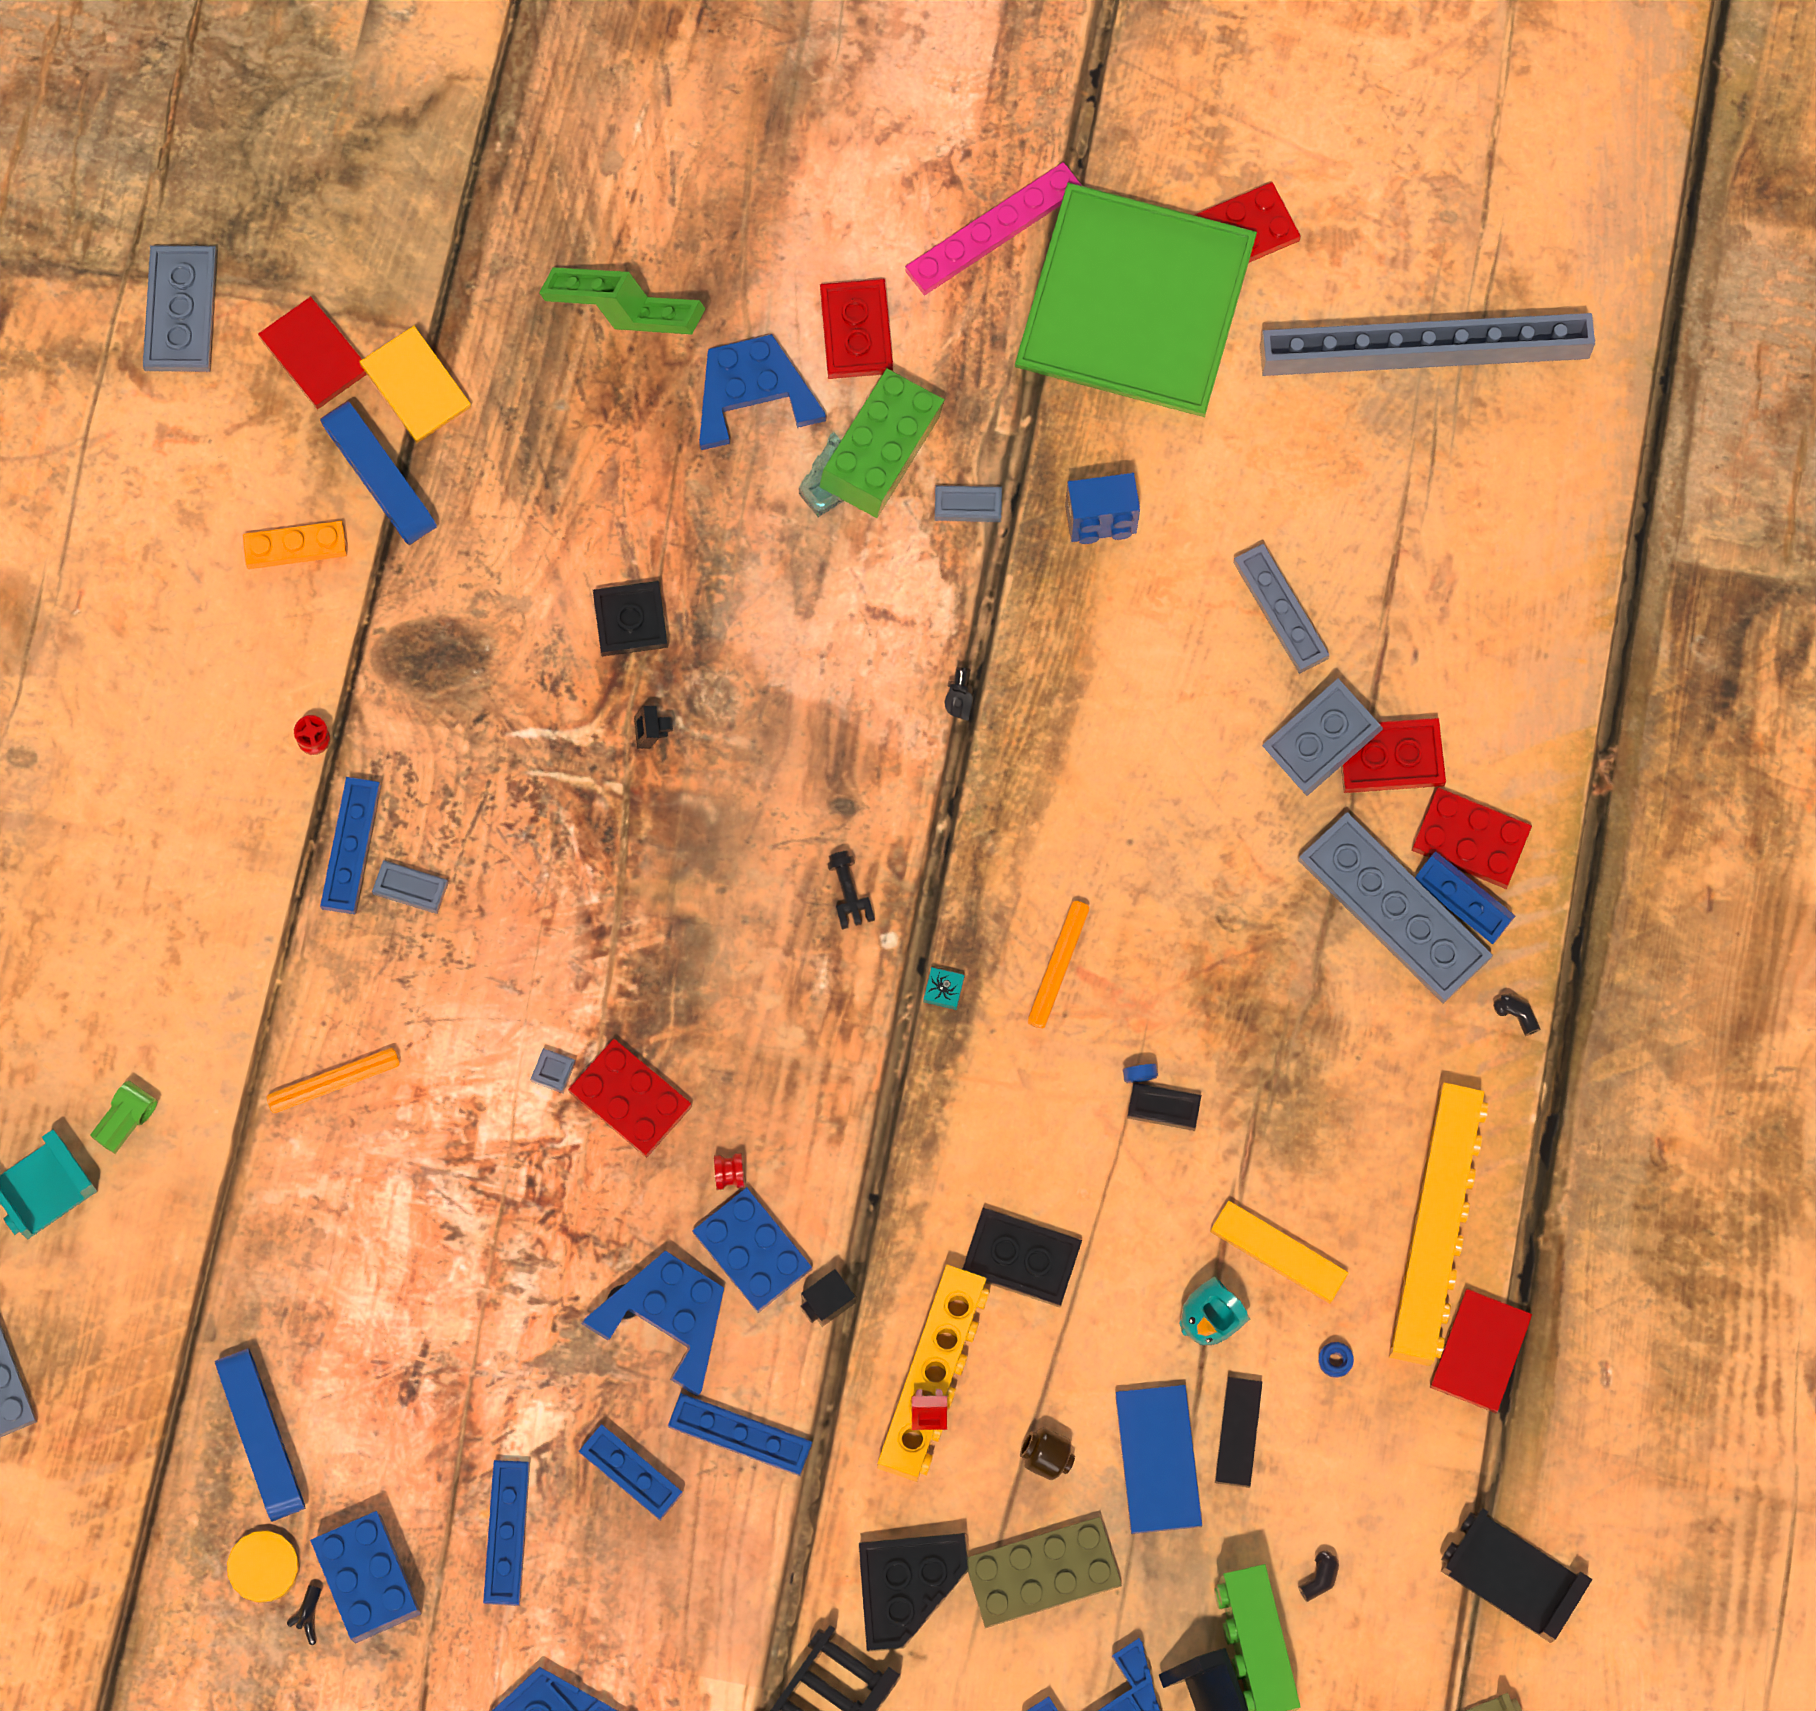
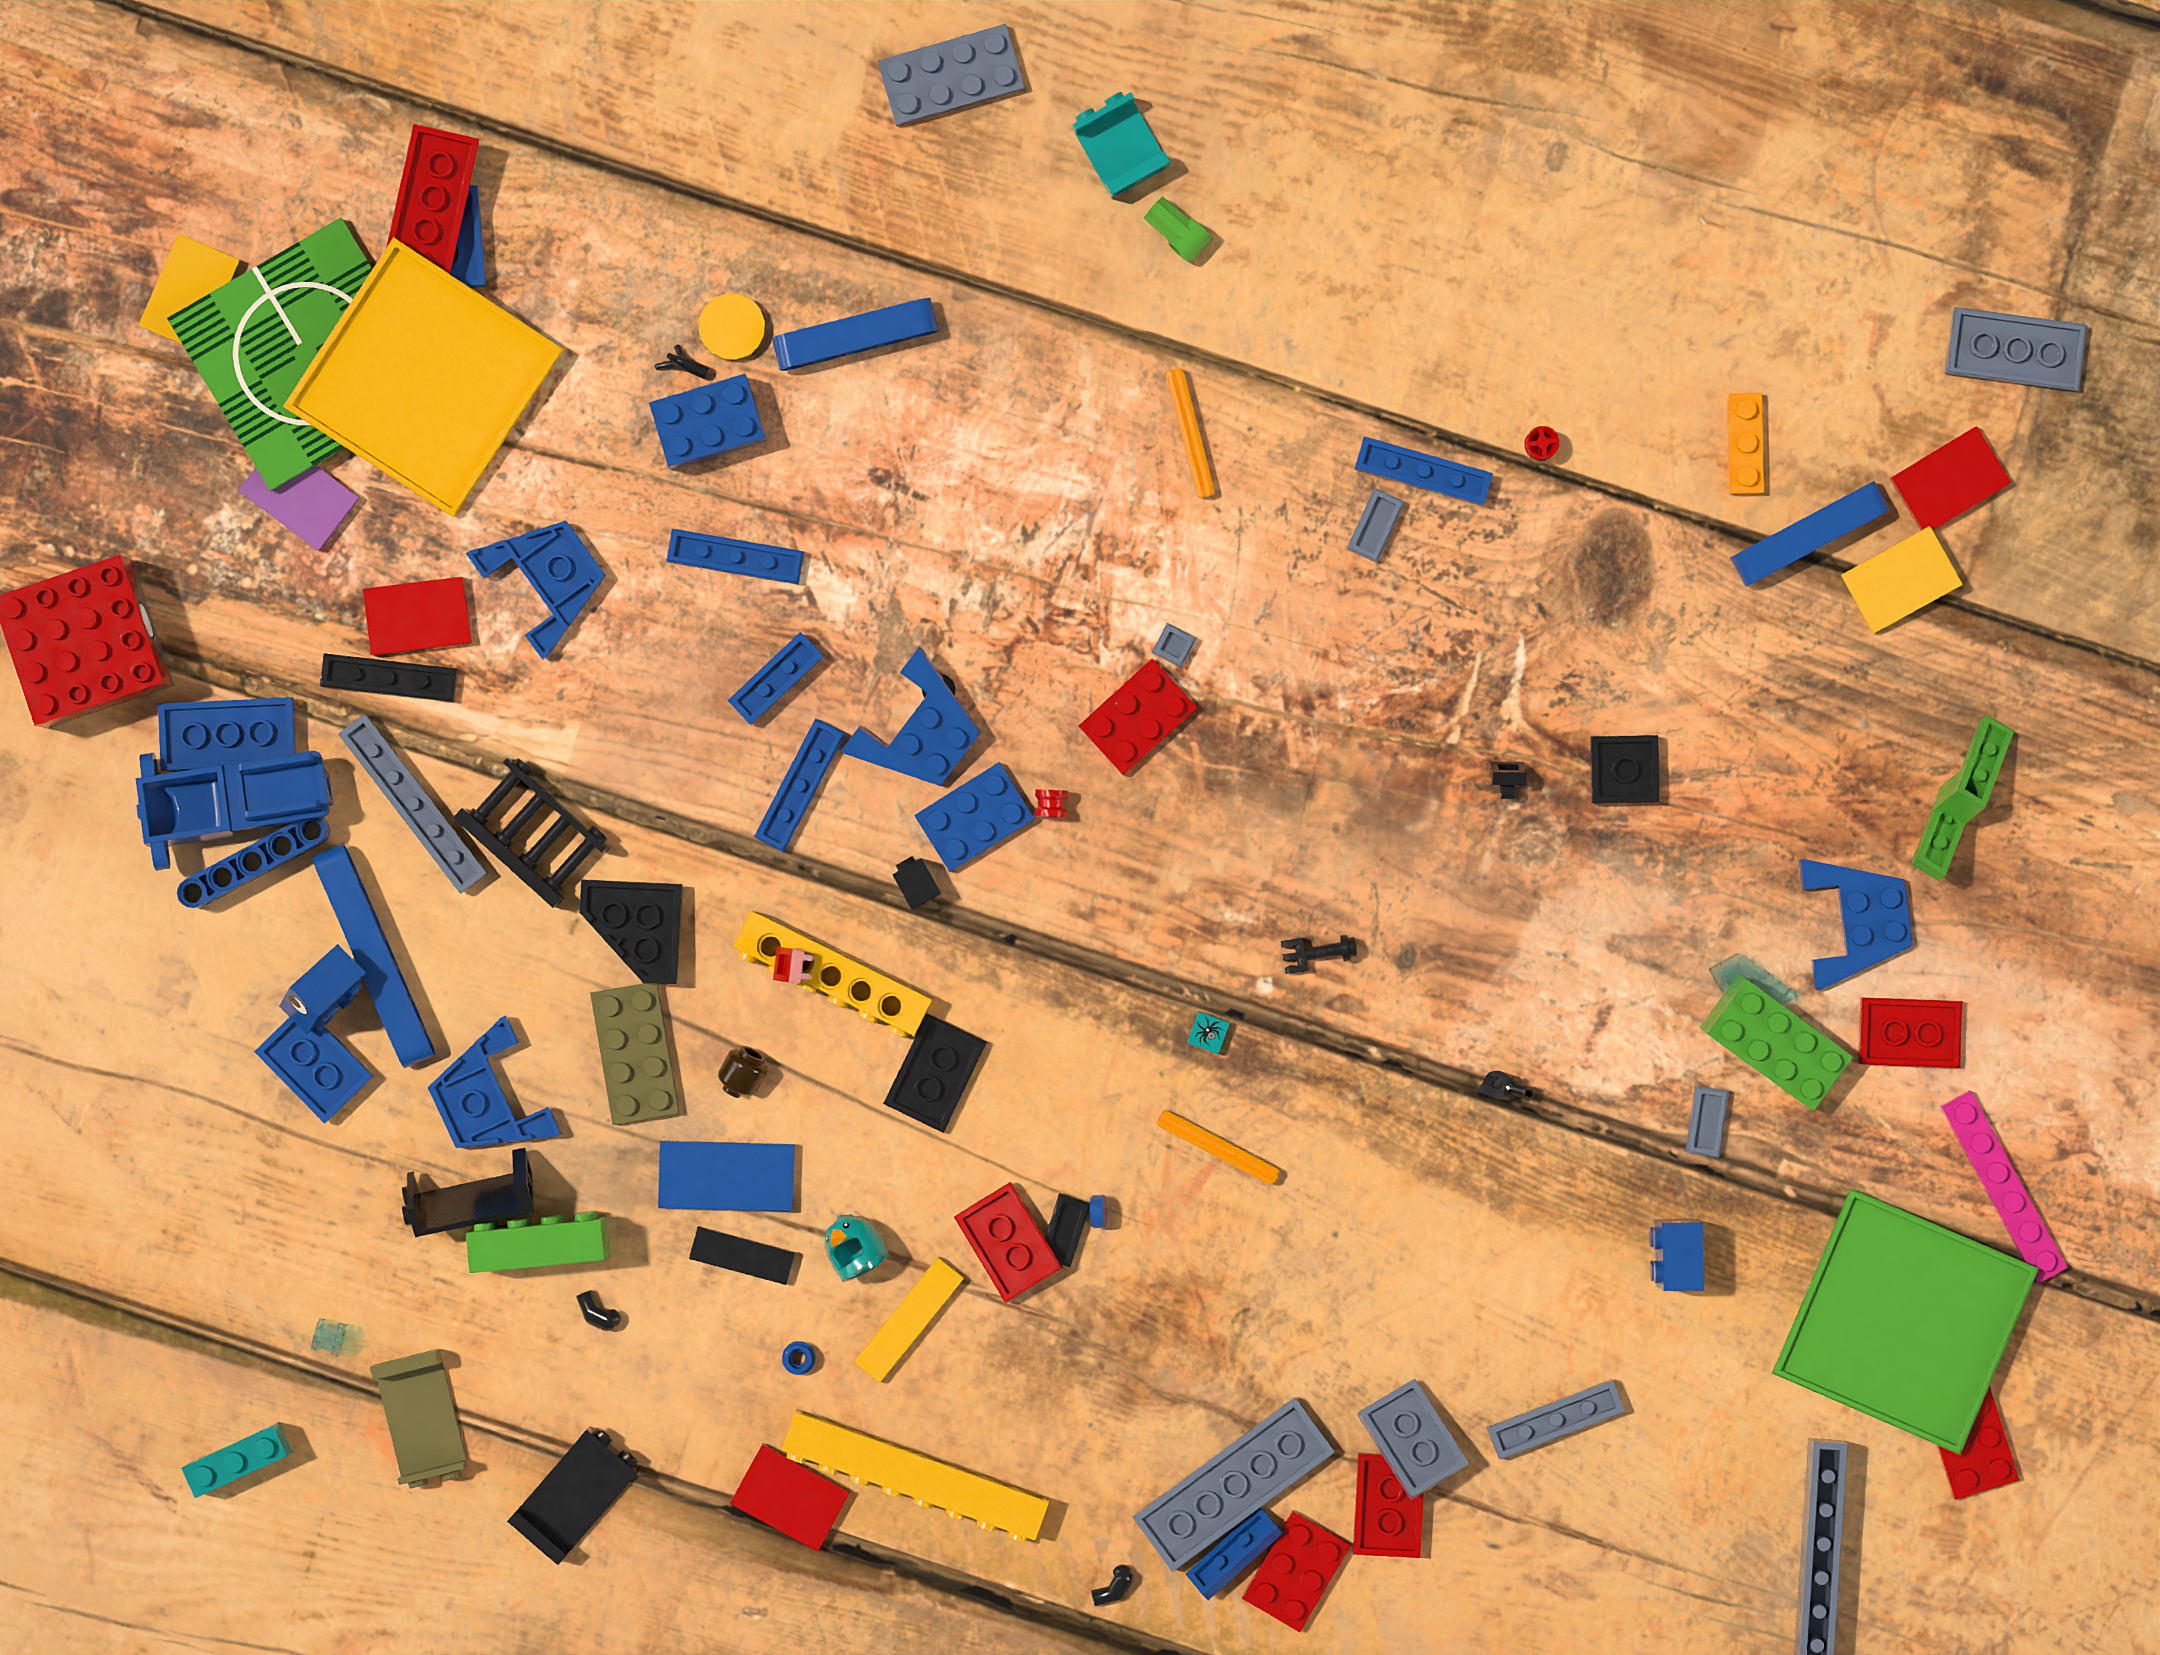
camera: 95 degrees right, 15 degrees up
(1184, 1159) = (1008, 1242): none -> red tile

